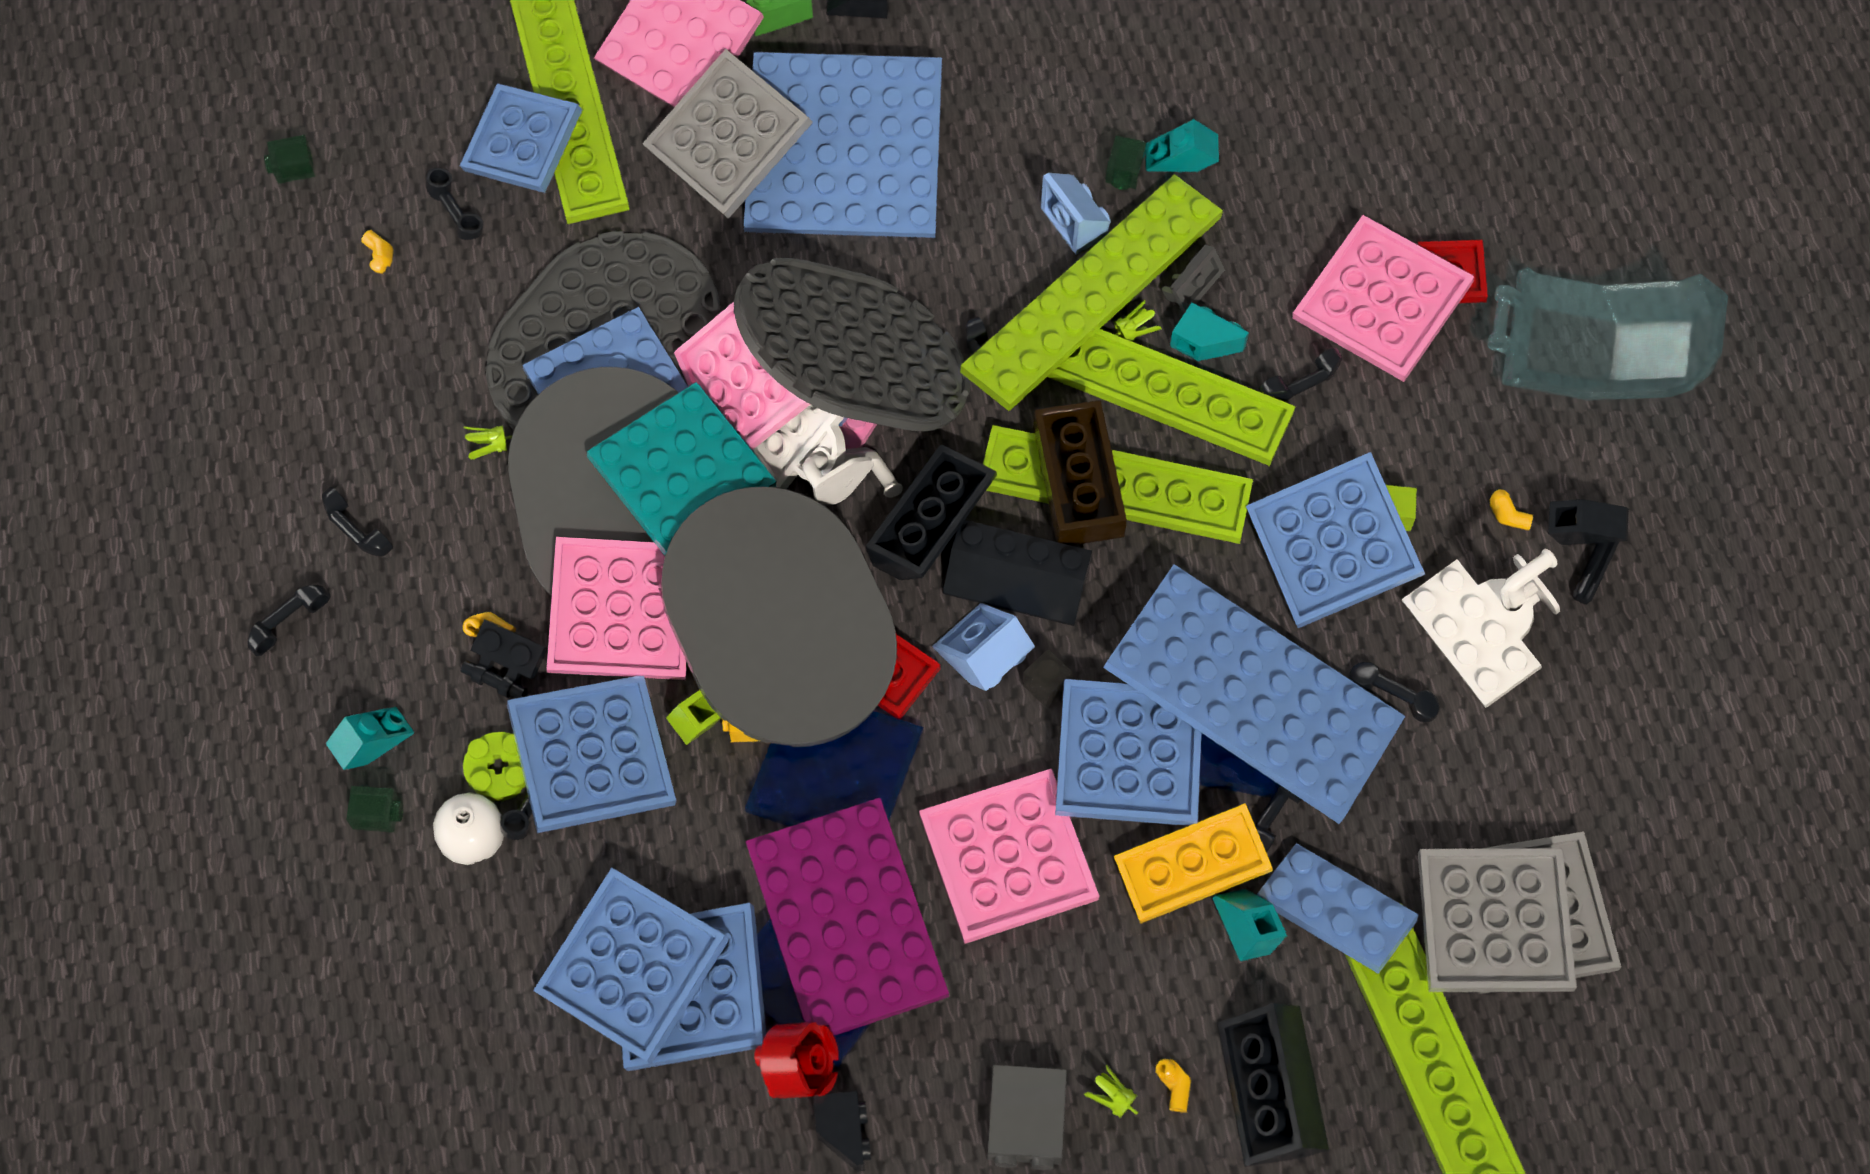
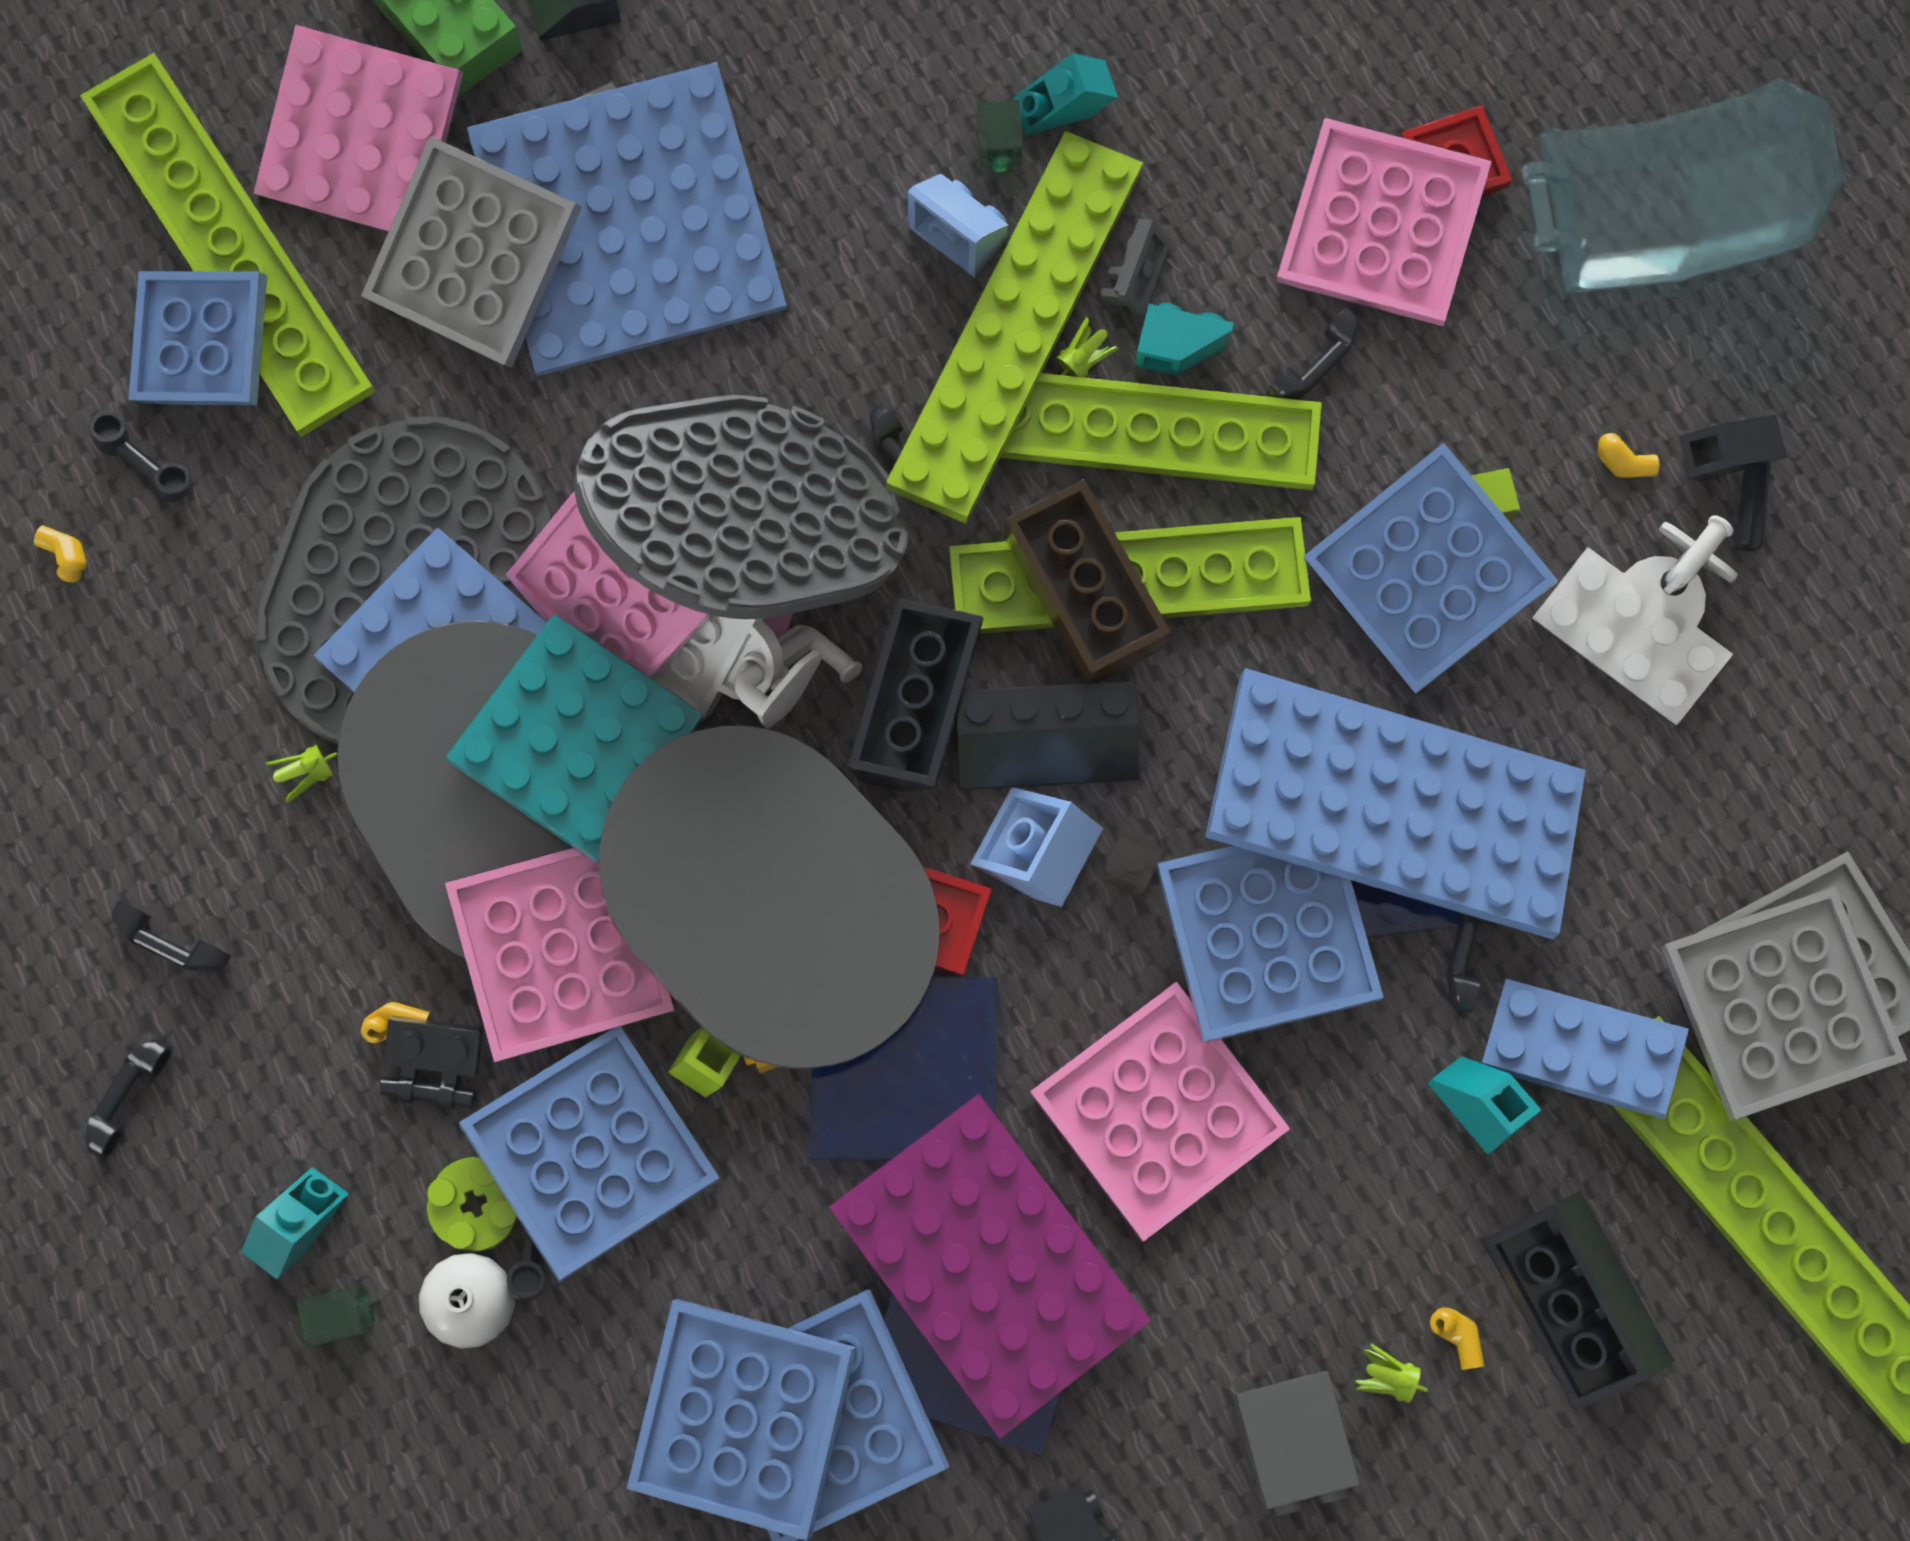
camera: 20 degrees left, 10 degrees up
(794, 1063) = (995, 1474): red brick -> none
(1193, 863) = (1392, 1049): yellow plate -> none
(1423, 703) = (1521, 730): black bar -> none

